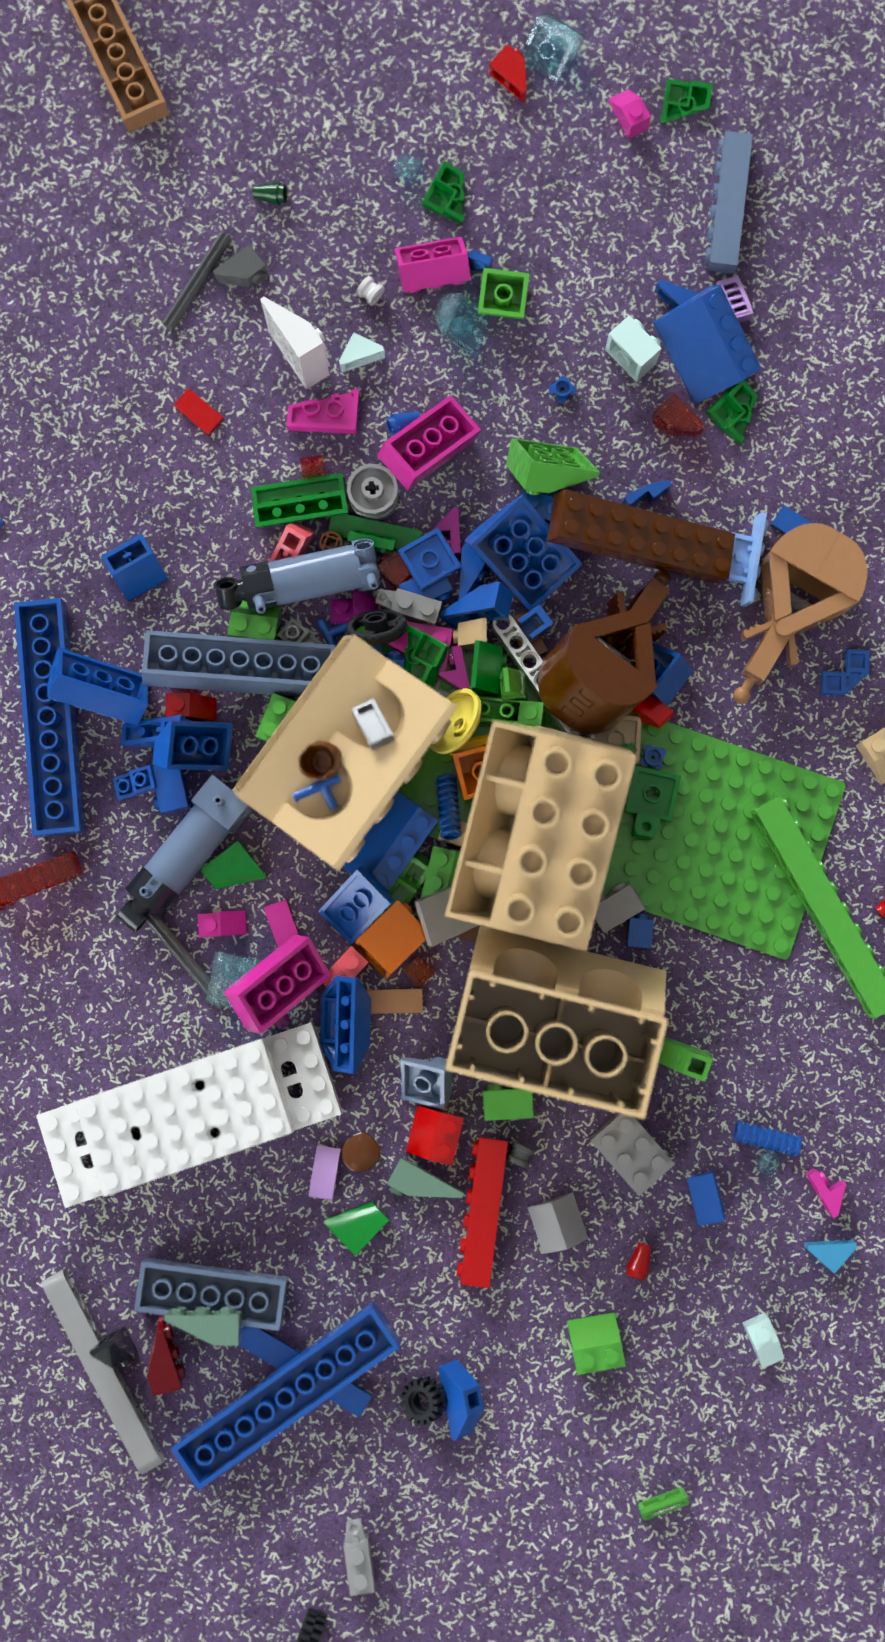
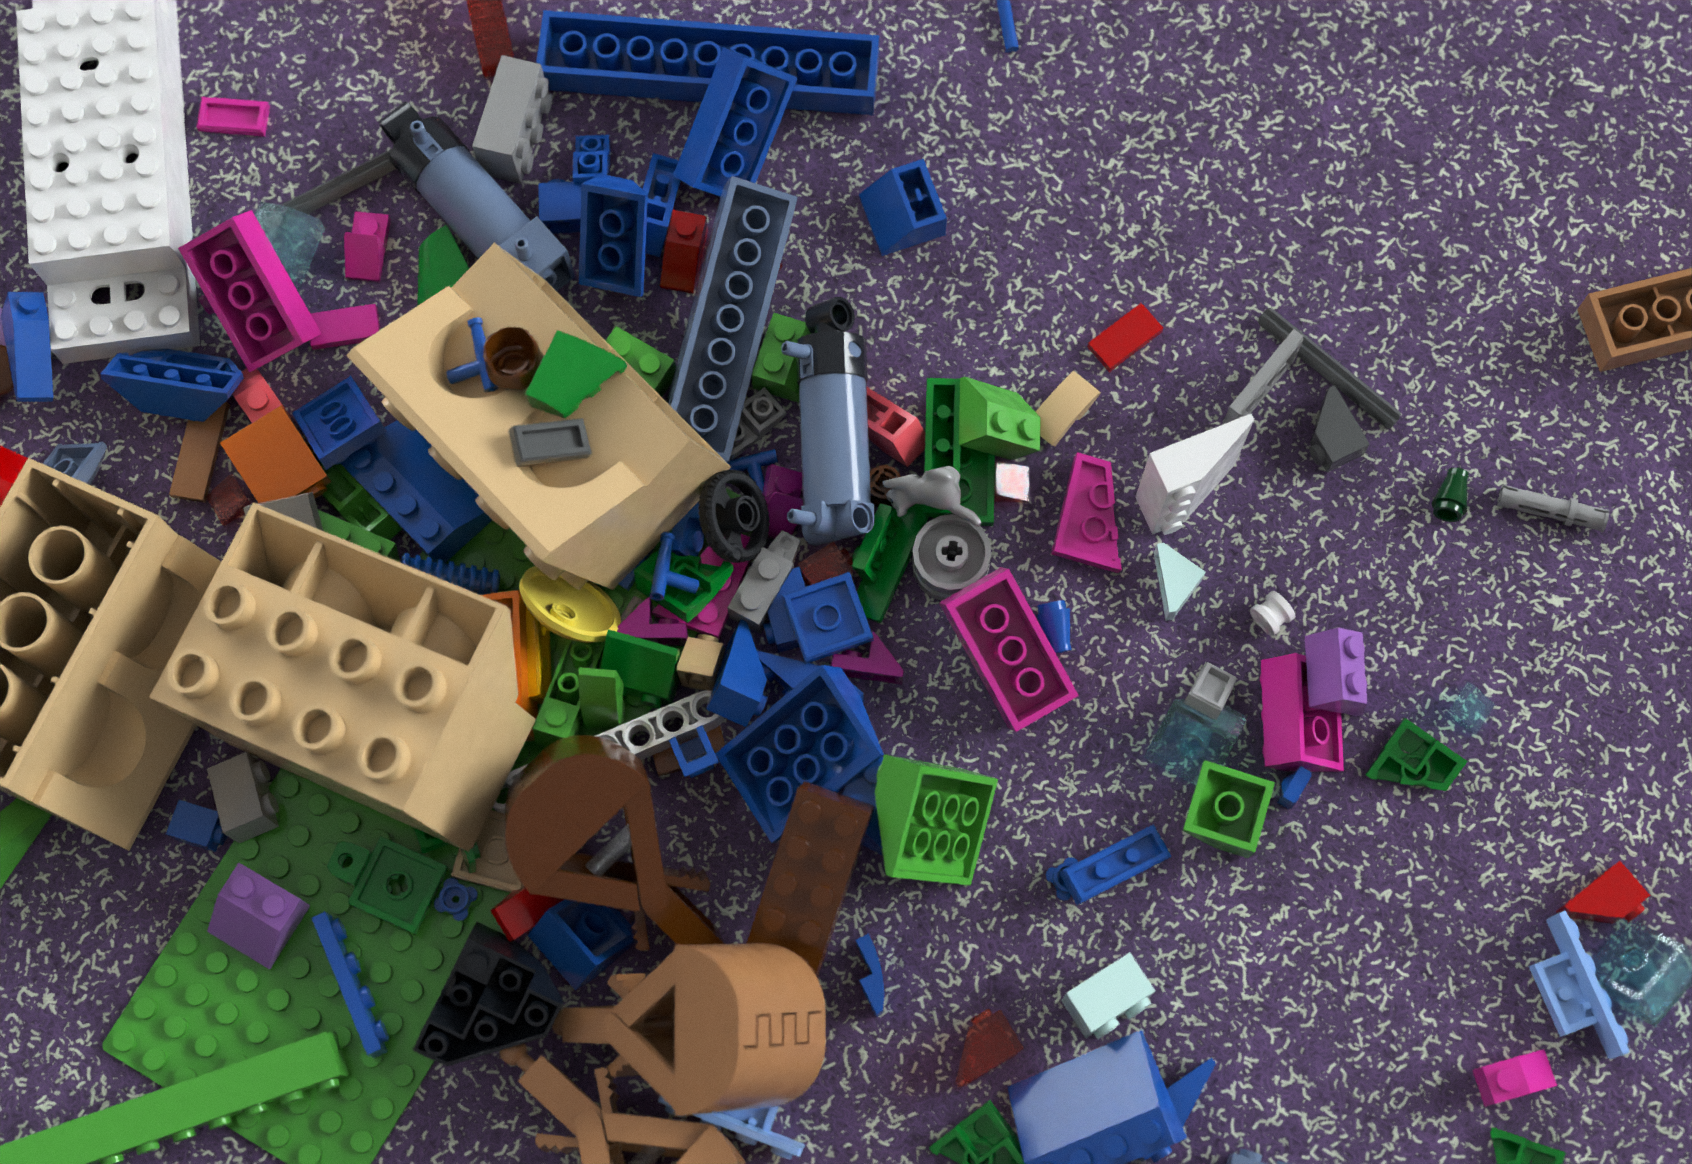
camera: 100 degrees right, 10 degrees down
(116, 839) = (512, 119): none -> light grey brick
(141, 1042) = (233, 116): none -> dark pink tile
(219, 315) = (1265, 378): none -> light grey tile
(256, 441) = (1064, 406): none -> tan slope
(268, 122) = (1560, 509): none -> light grey pin
(274, 478) = (996, 421): none -> bright green slope
(324, 719) = (570, 374): none -> green slope
(334, 504) = (936, 489): none -> light grey animal
(340, 1131) = (28, 345): none -> blue slope
(404, 241) = (1336, 671): none -> medium lavender slope
(426, 663) = (663, 576): none -> blue piece
(429, 318) = (1210, 690): none -> light grey tile
(549, 360) = (1115, 864): none -> blue tile
(570, 84) = (1573, 990): none -> light blue bracket
(689, 878) = (255, 915): none -> medium lavender slope
(709, 539) = (697, 1013): none -> medium nougat piece
(714, 716) = (490, 1001): none -> black brick
(727, 801) = (358, 998): none -> blue plate

